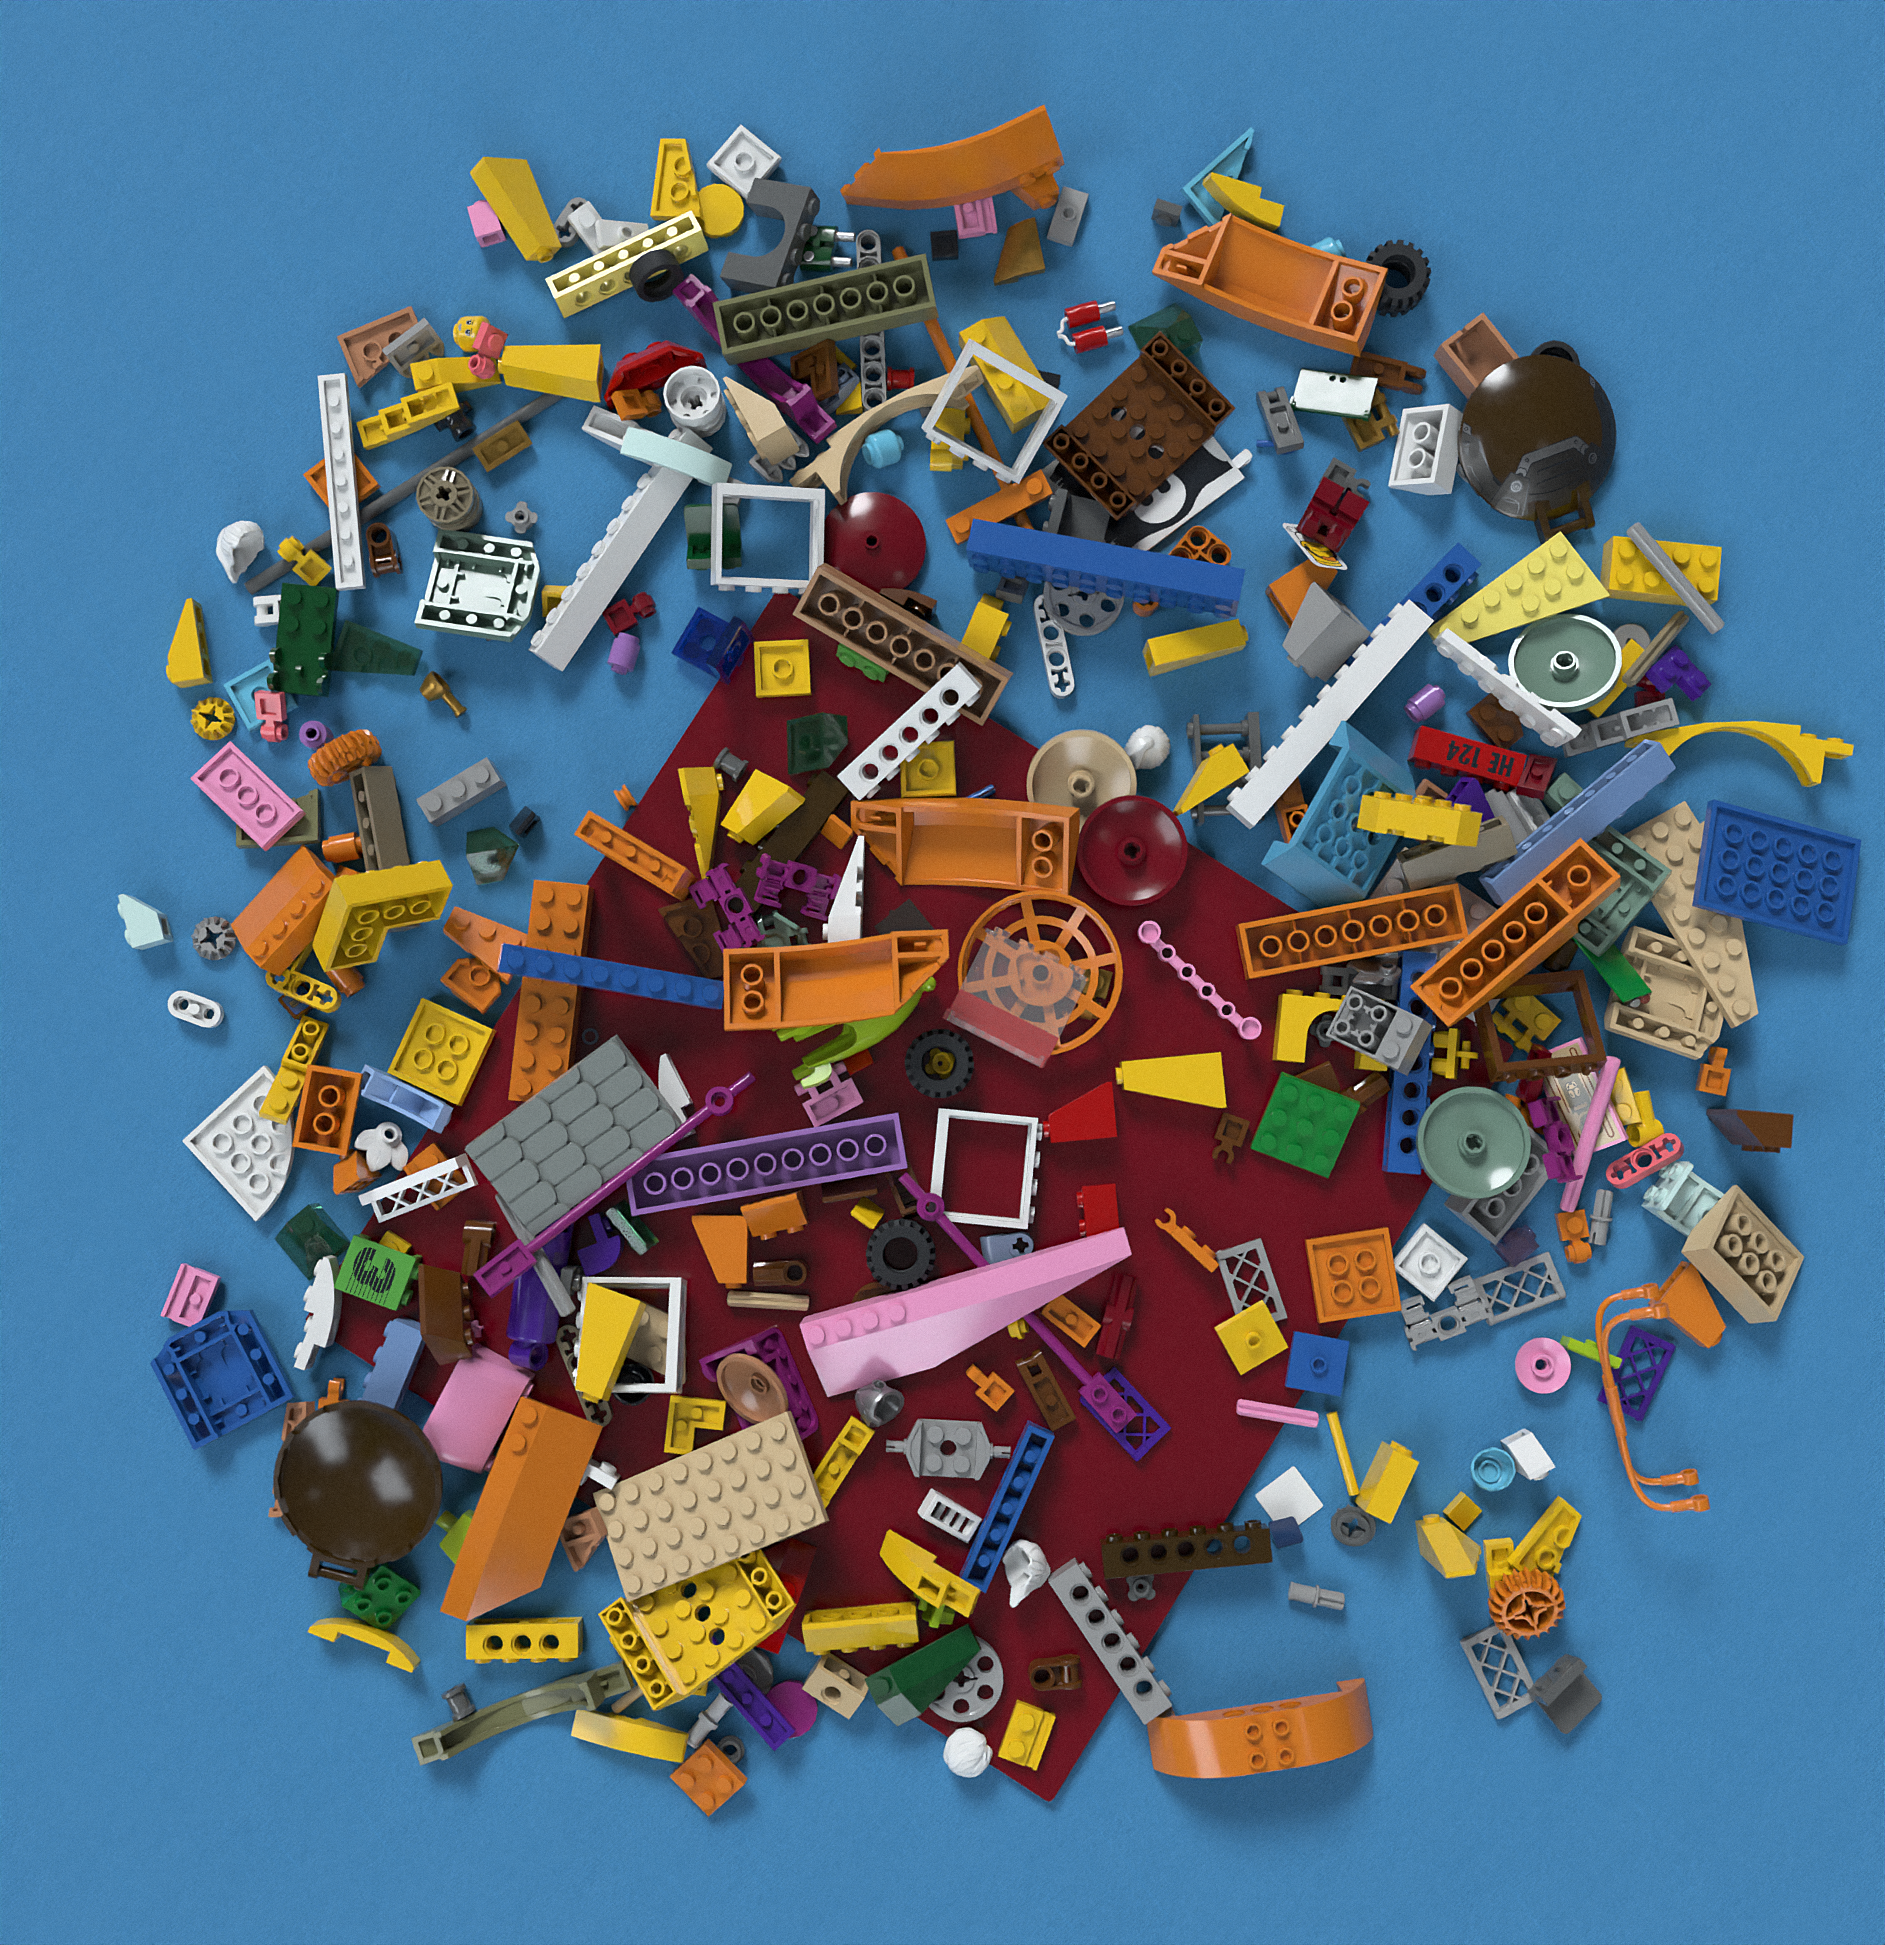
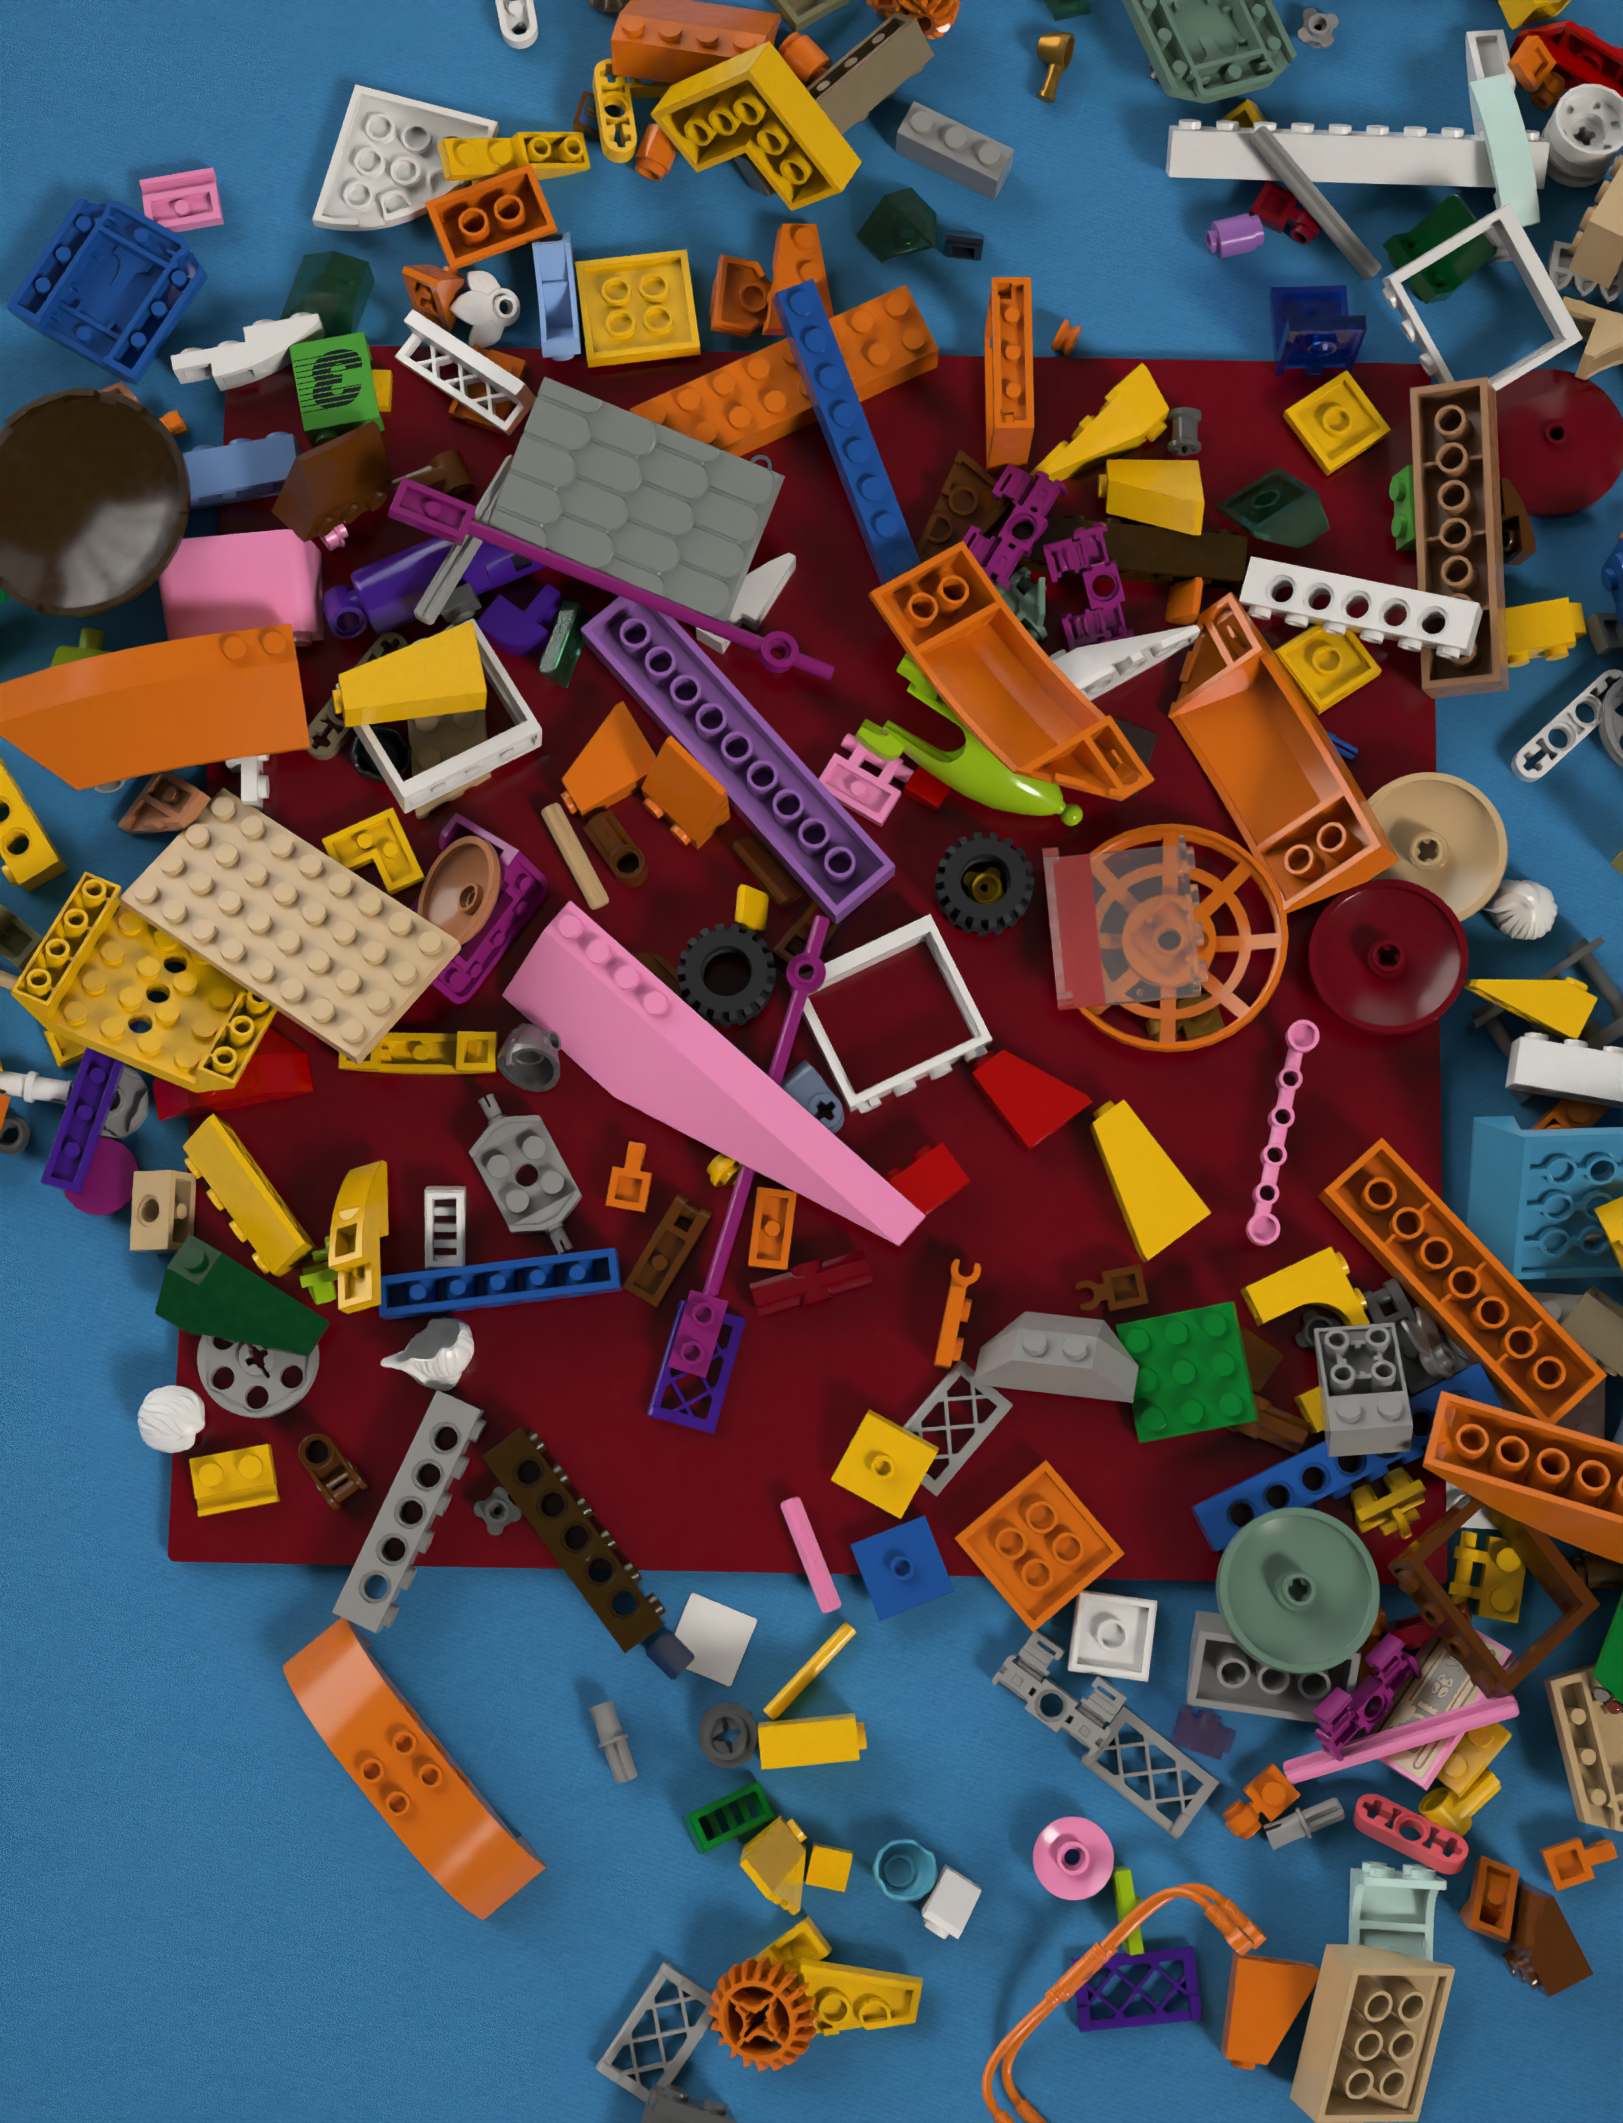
camera: 60 degrees right, 5 degrees down
(635, 593) = (1314, 203): none -> light grey axle
(1251, 1195) = (1058, 1358): none -> light grey wedge
(1408, 1577) = (696, 1832): none -> green slope
(1709, 1137) = (1491, 1899): none -> orange slope

